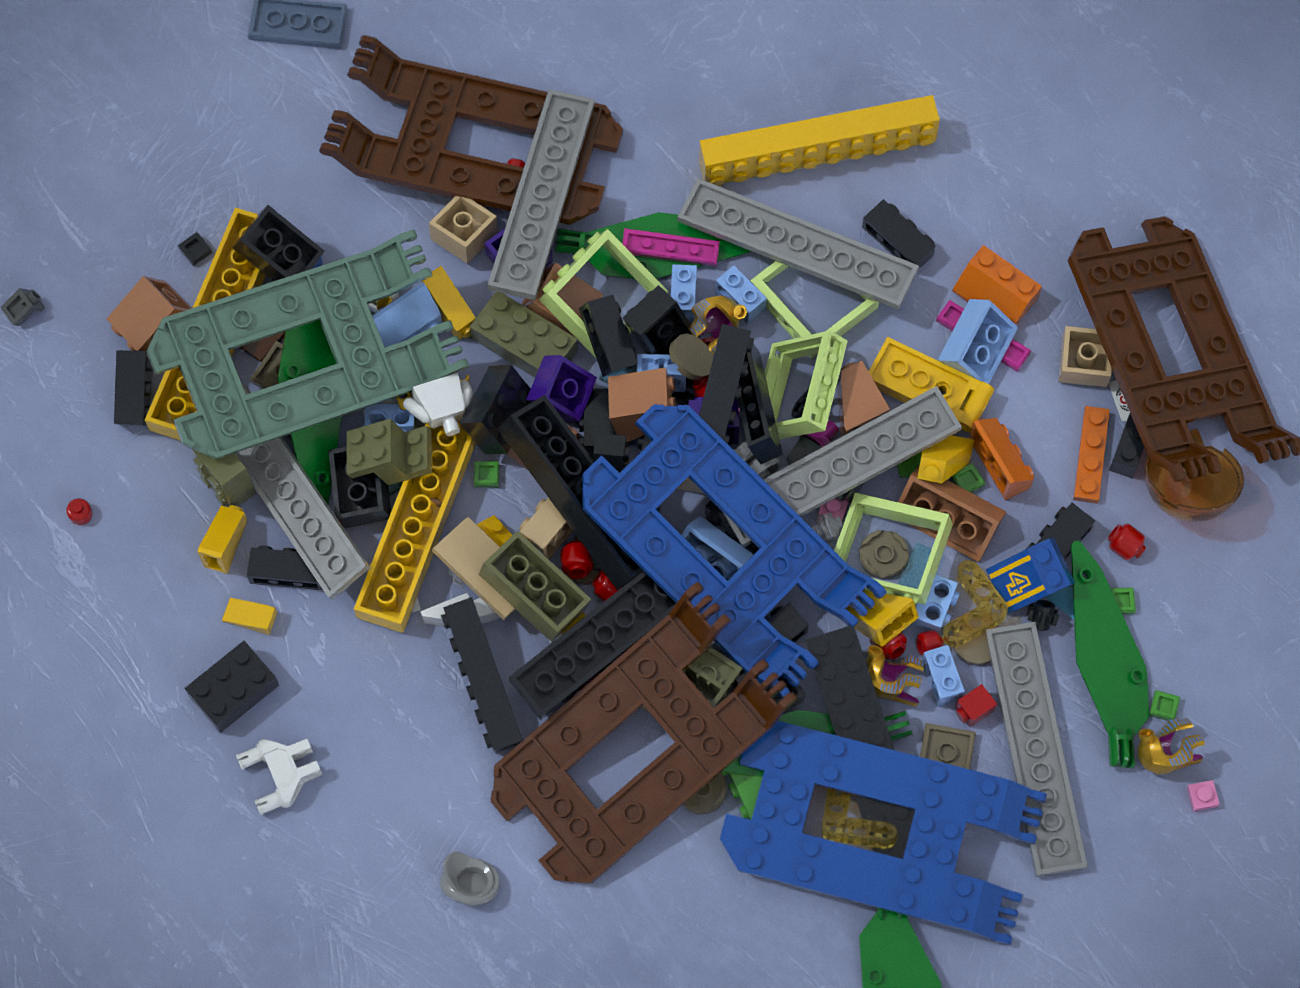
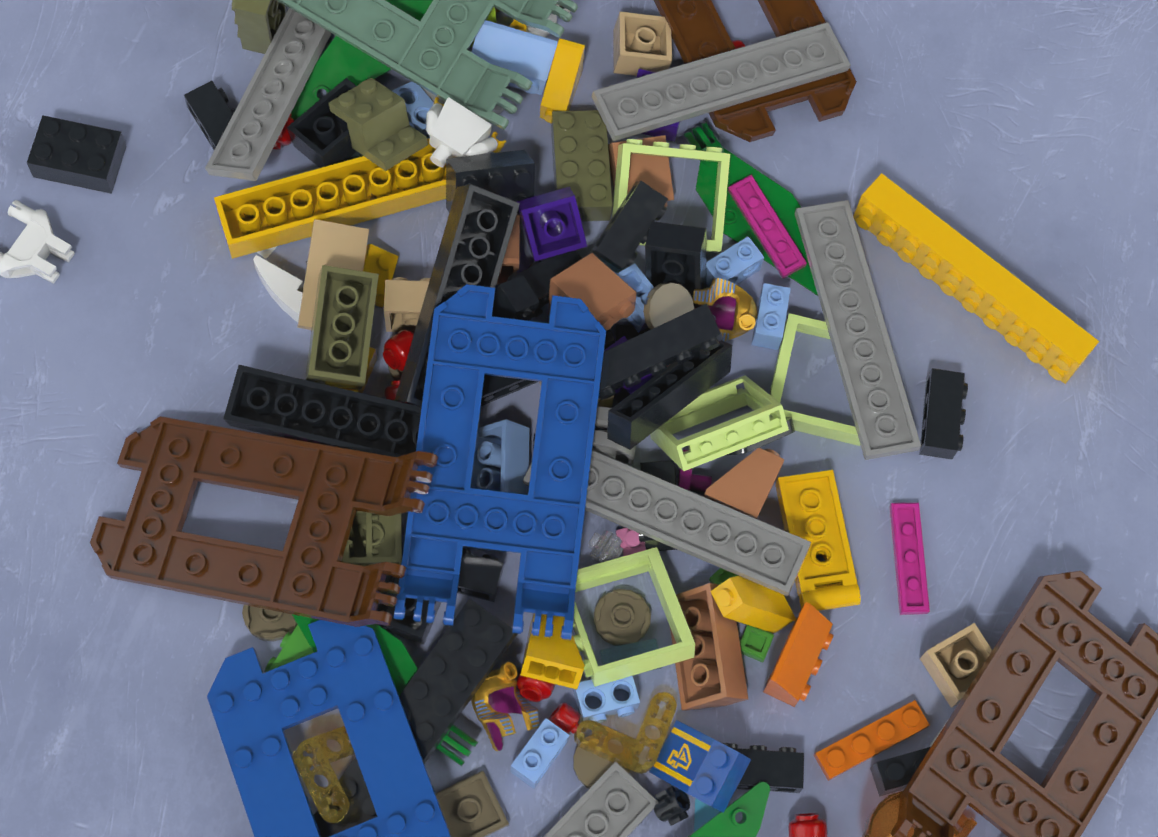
camera: 45 degrees right, 0 degrees up
(222, 538) = (205, 54): yellow slope -> none
(250, 615) = (156, 127): yellow slope -> none
(468, 879) = (36, 468): light grey piece -> none
(482, 674) = (234, 345): black brick -> none
(486, 474) = (431, 224): bright green tile -> none
(975, 706) = (532, 804): red brick -> none
(979, 340) = (895, 555): light blue slope -> none
(997, 280) = (964, 537): orange slope -> none

